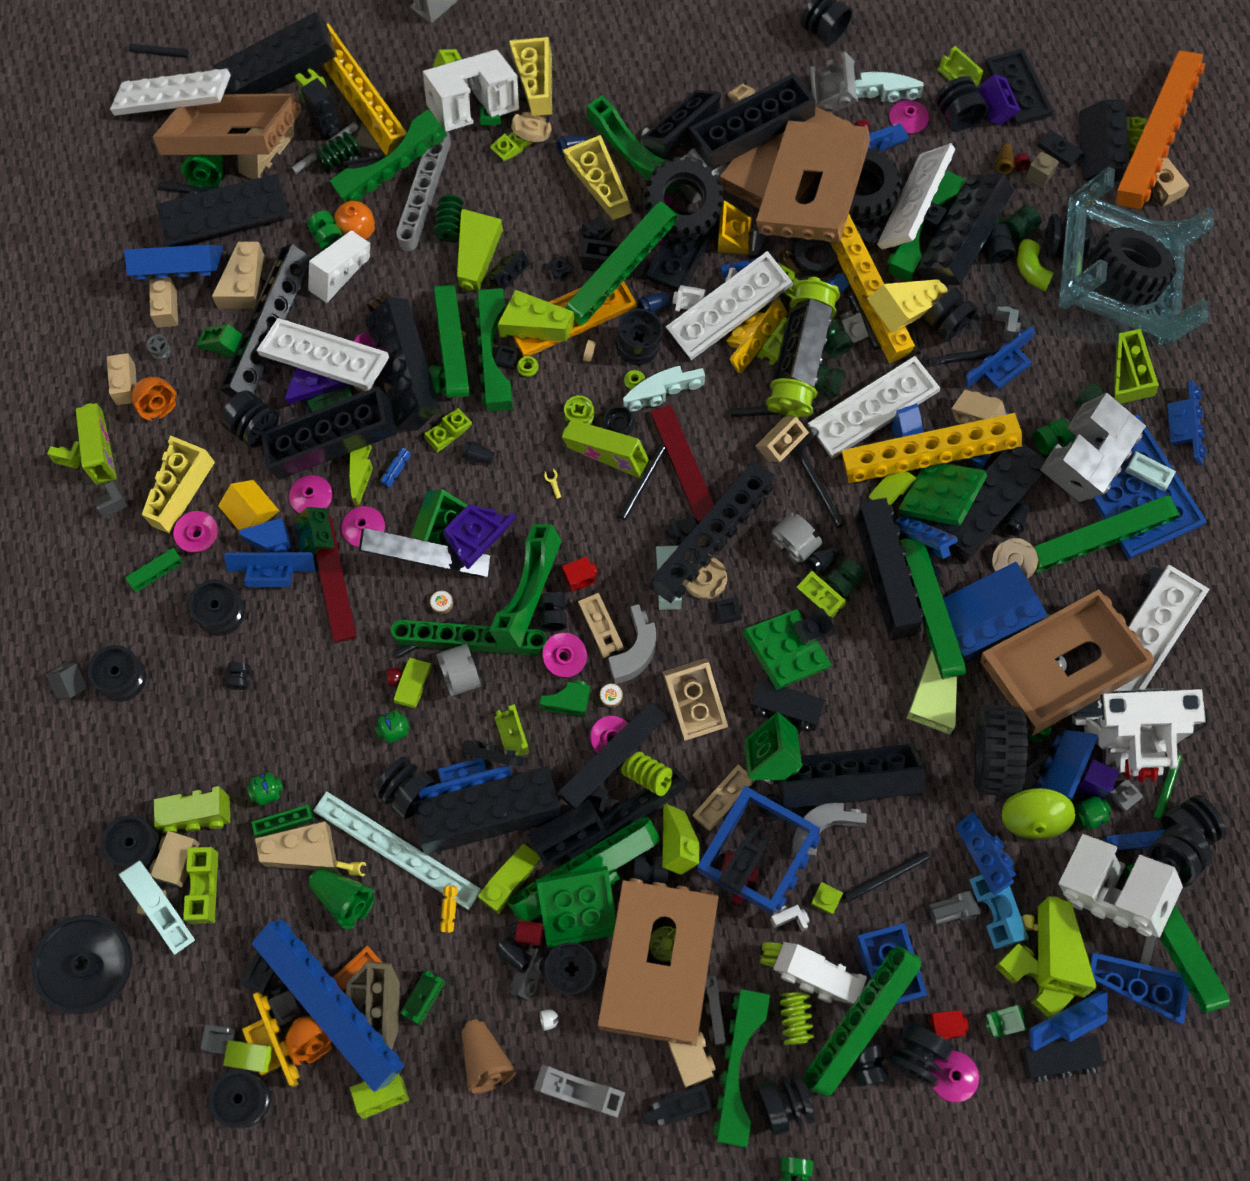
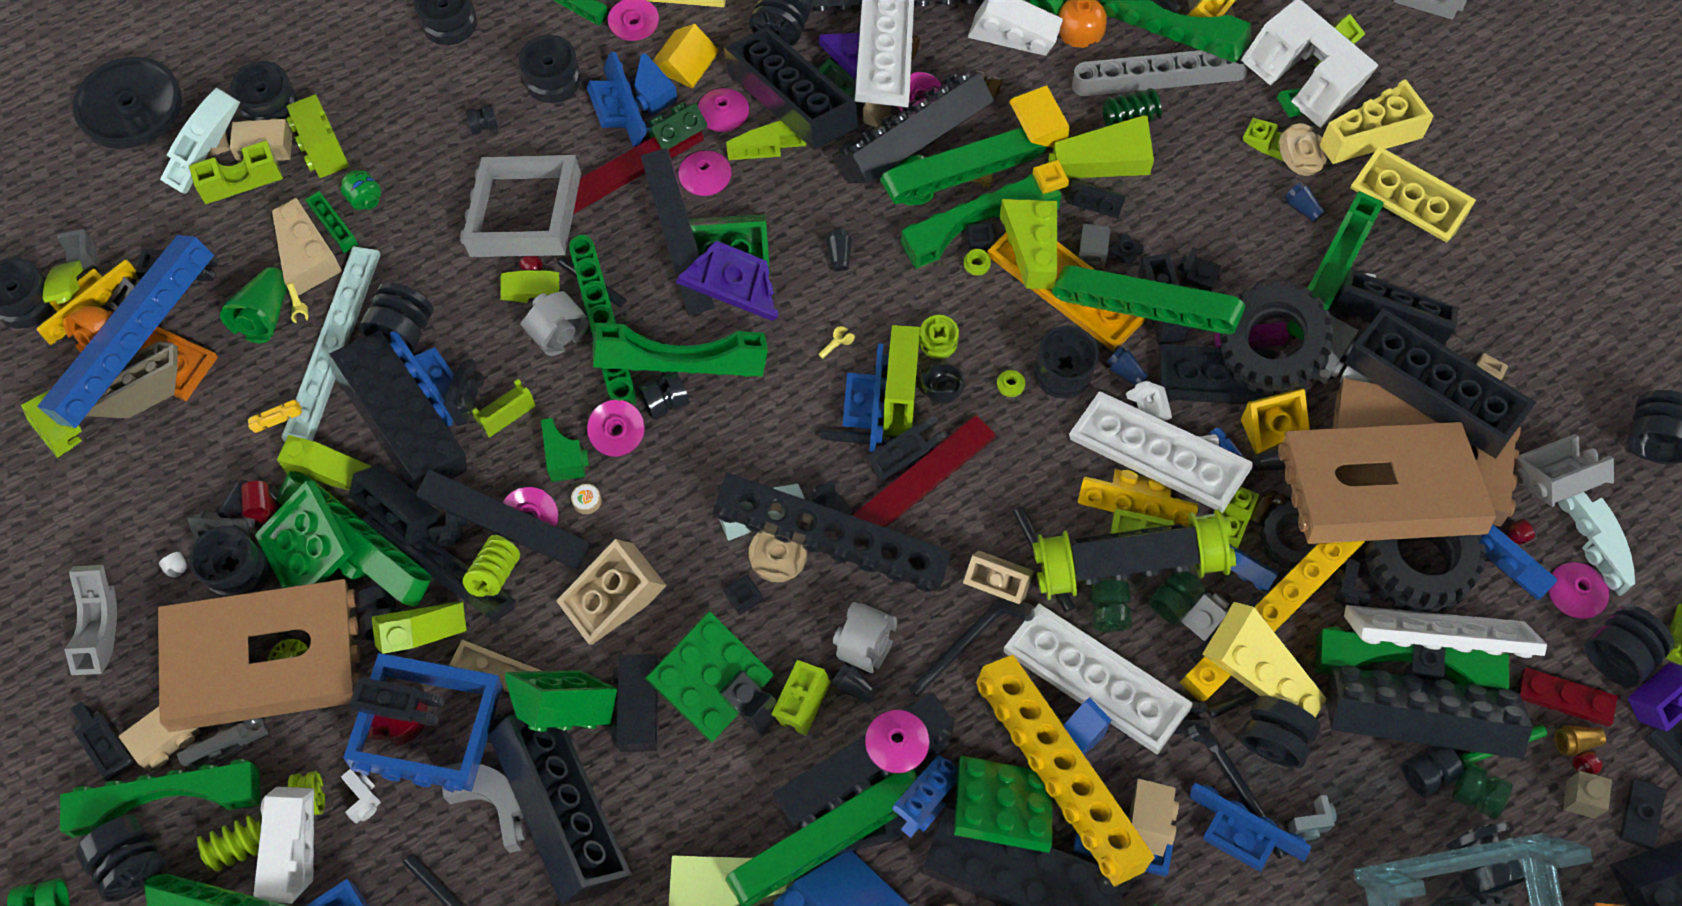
camera: 70 degrees right, 5 degrees down
(375, 682) = (522, 243): none -> light grey window
(392, 726) = (469, 284): green head -> none
(395, 467) = (788, 176): blue axle -> none
(422, 997) = (168, 428): green hinge -> none
(433, 275) = (1040, 117): none -> yellow slope
(441, 602) = (640, 281): tile -> none
(450, 428) = (861, 213): lime slope -> none
(484, 1059) = (110, 509): medium nougat cone -> none
(486, 288) = (1050, 176): none -> yellow tile
(549, 285) = (1094, 245): none -> dark grey panel
(580, 574) = (725, 409): red brick -> none
(589, 351) = (1026, 318): tan tile -> none
(596, 171) = (1274, 244): light yellow wedge -> none
(599, 77) = (1414, 194): none -> light yellow slope
(600, 624) = (670, 455): tan plate -> none
(610, 476) = (862, 399): none -> blue bracket
(634, 661) = (652, 511): light grey arch -> none
(654, 389) = (1005, 408): light aqua slope -> none
(661, 464) = (904, 449): none -> black hinge
(827, 898) = (401, 835): lime plate -> none
(846, 576) = (845, 722): clear green wheel -> none
(885, 545) = (897, 756): none -> dark pink dish
(893, 486) = (990, 738): lime slope -> none
(975, 153) = (1567, 697): none -> dark red plate
(1030, 267) = (1420, 824): lime cylinder -> none

